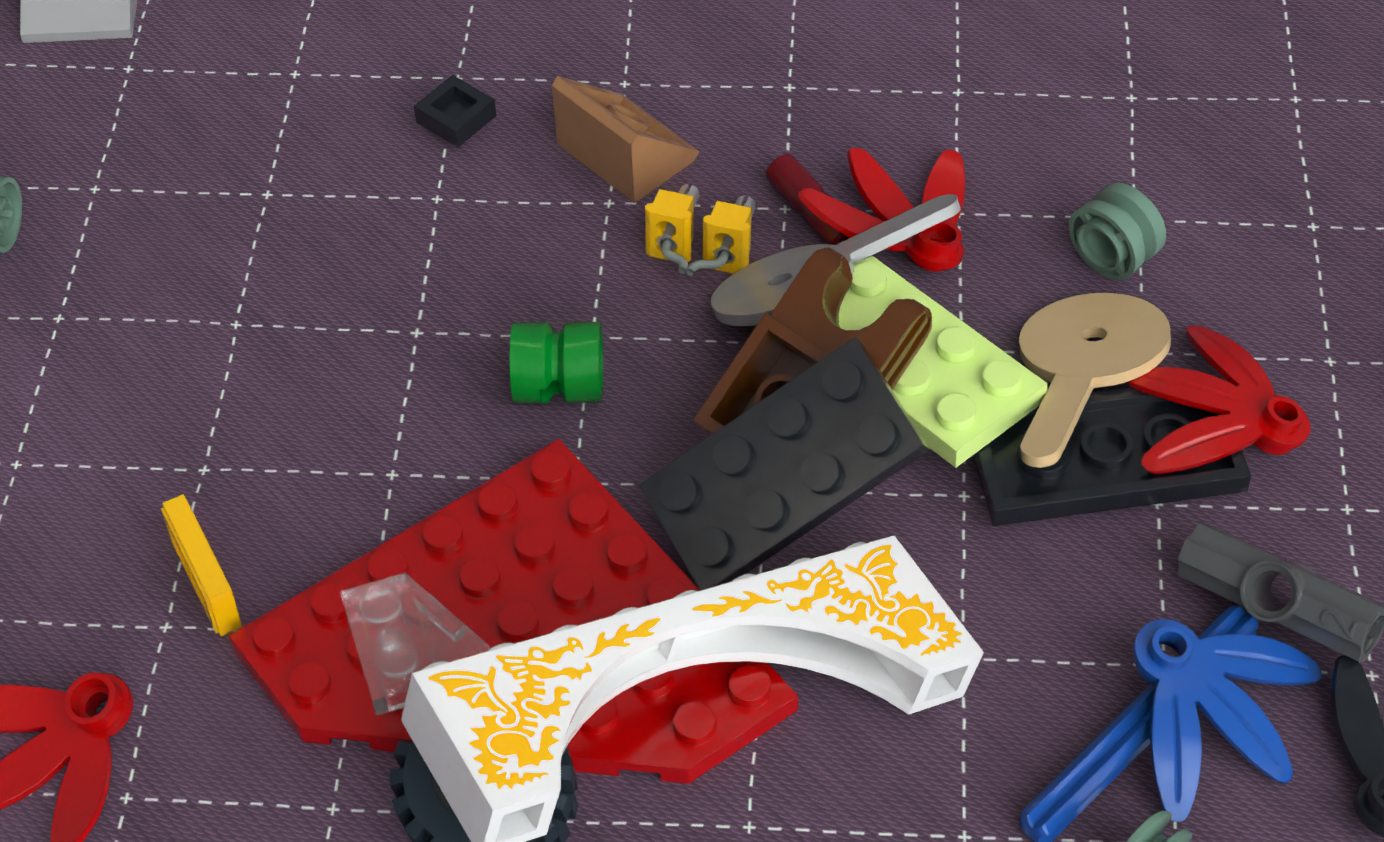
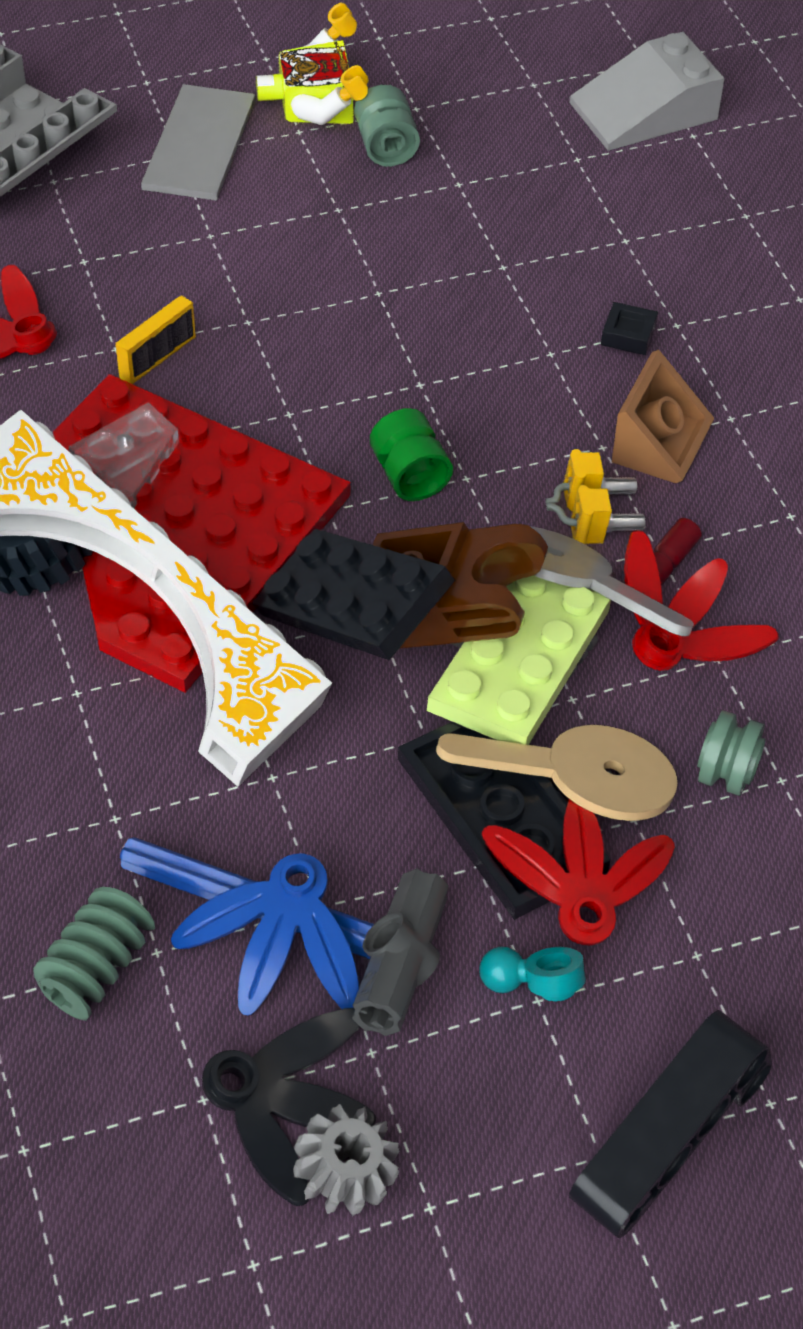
camera: 65 degrees right, 0 degrees up
(1336, 475) = (549, 972): none -> teal plate

